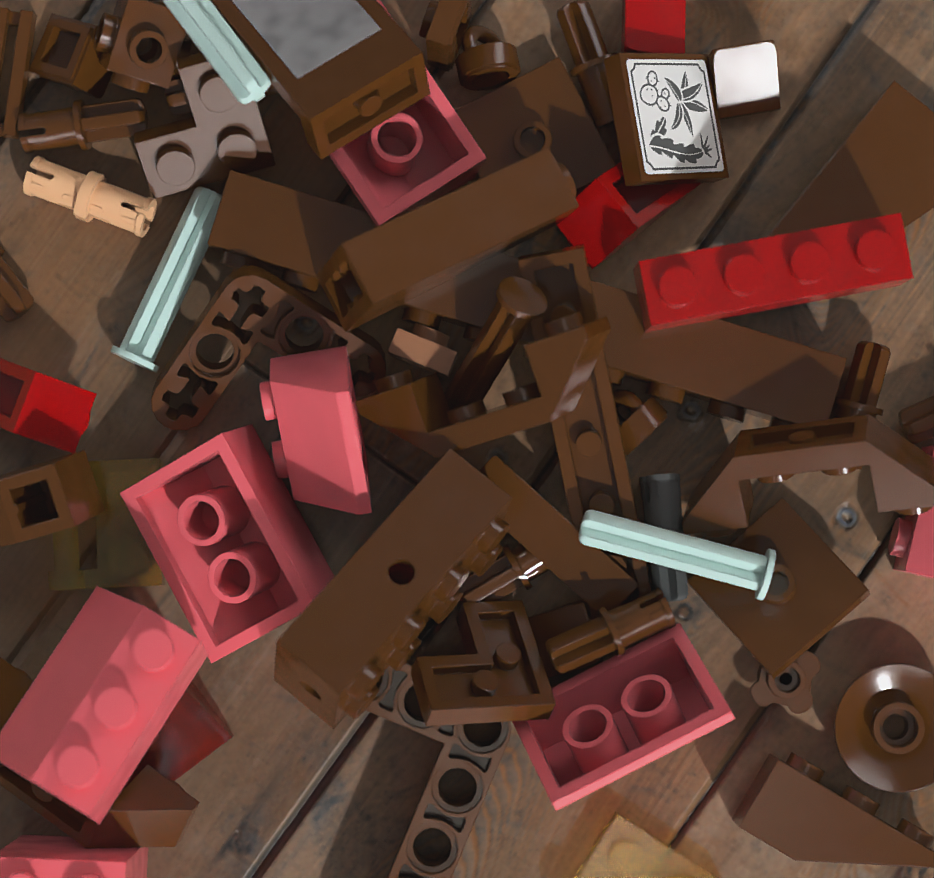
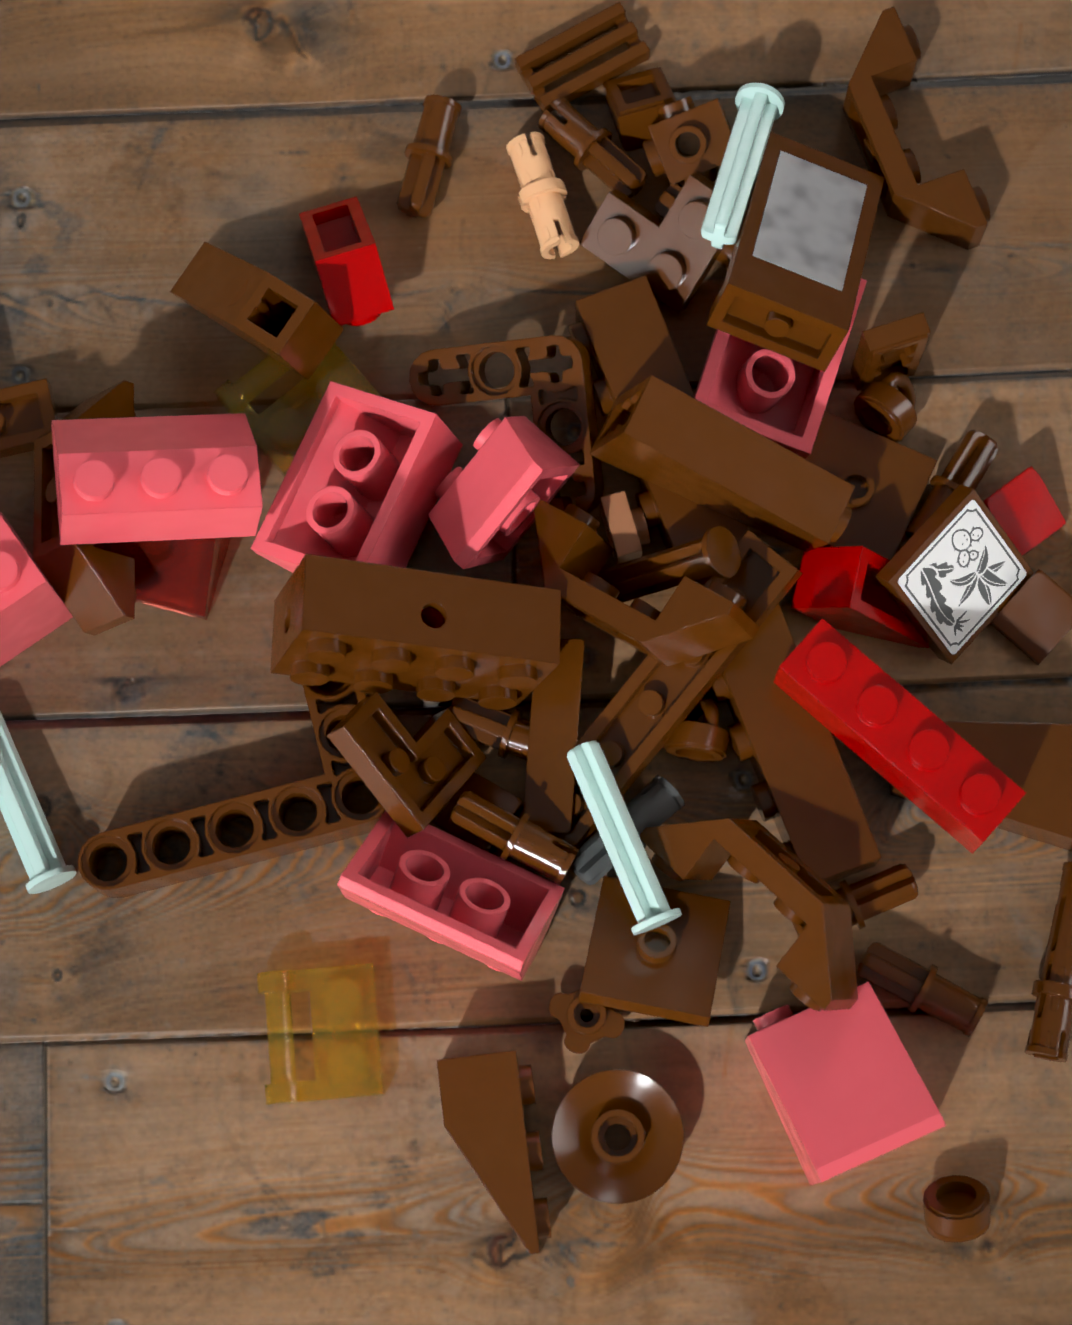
camera: 55 degrees right, 10 degrees down
(170, 281) = (520, 303): light aqua axle -> none

